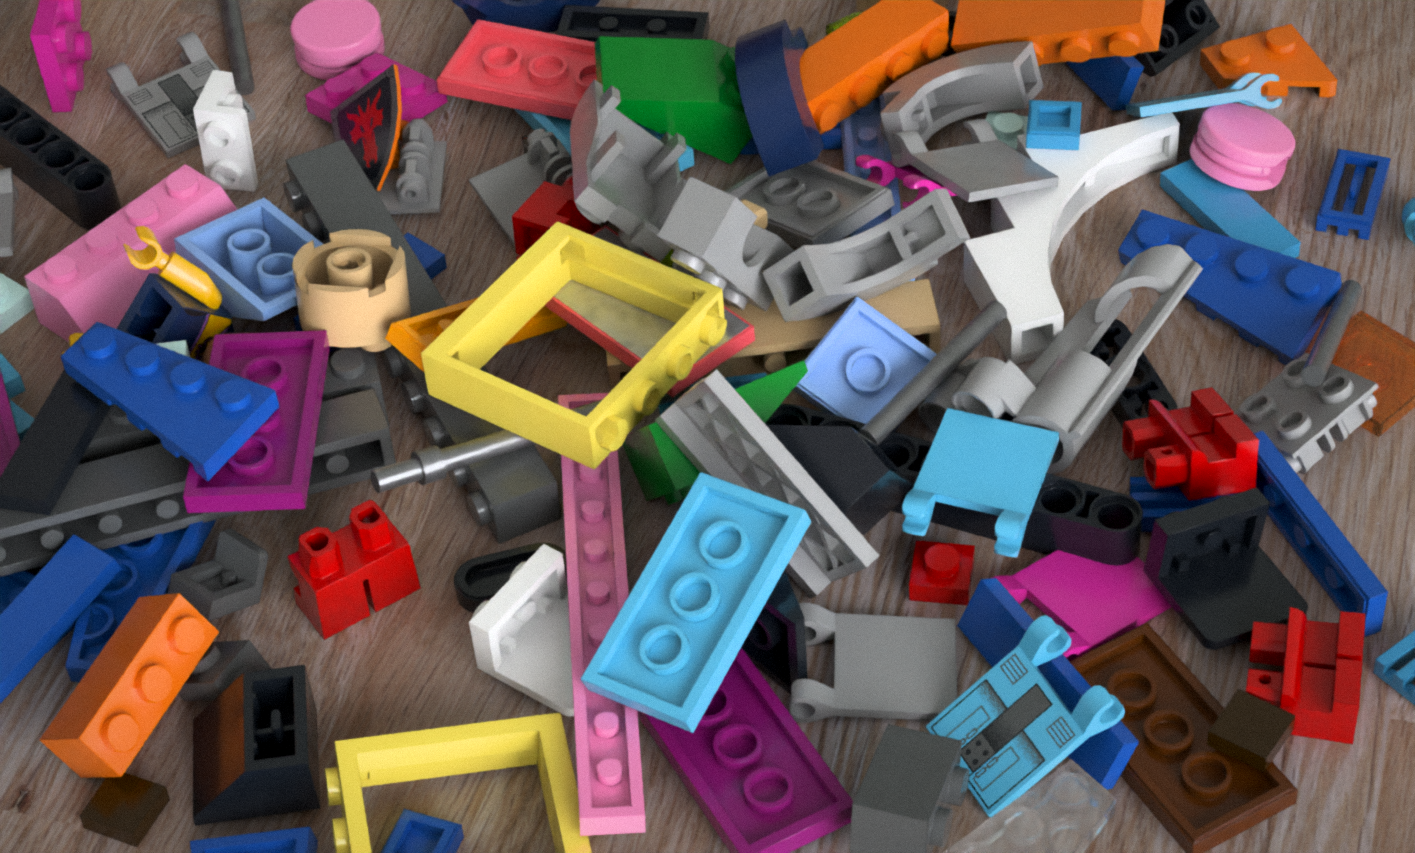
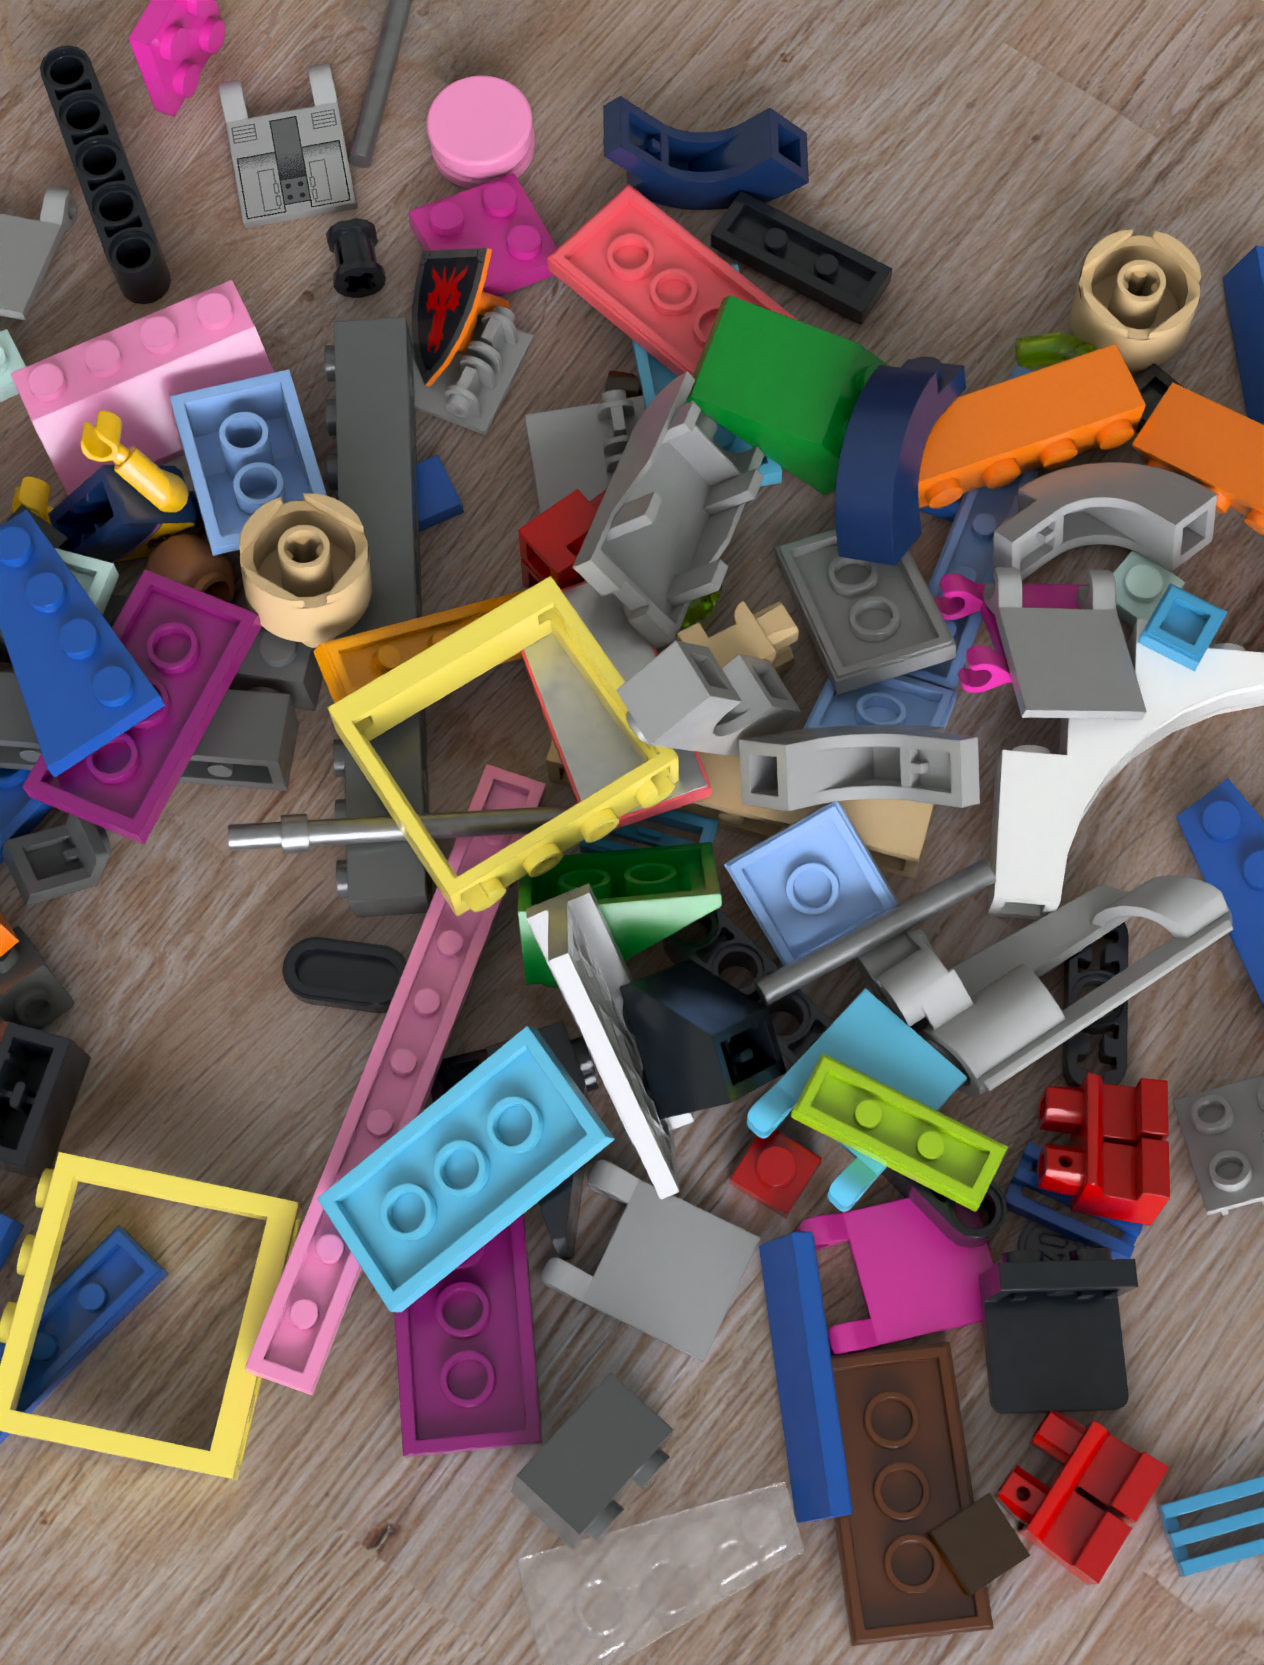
camera: 25 degrees right, 25 degrees up
(225, 134) = (292, 245): white bracket -> none
(275, 137) = (355, 258): none -> black bush
(352, 569) = (183, 906): red hips -> none
(526, 632) = (319, 1069): white bracket -> none
(1017, 723) = (739, 1423): medium azure flag -> none
(1028, 477) = (899, 1132): none -> lime tile
(1318, 539) = (1180, 1320): blue tile -> none

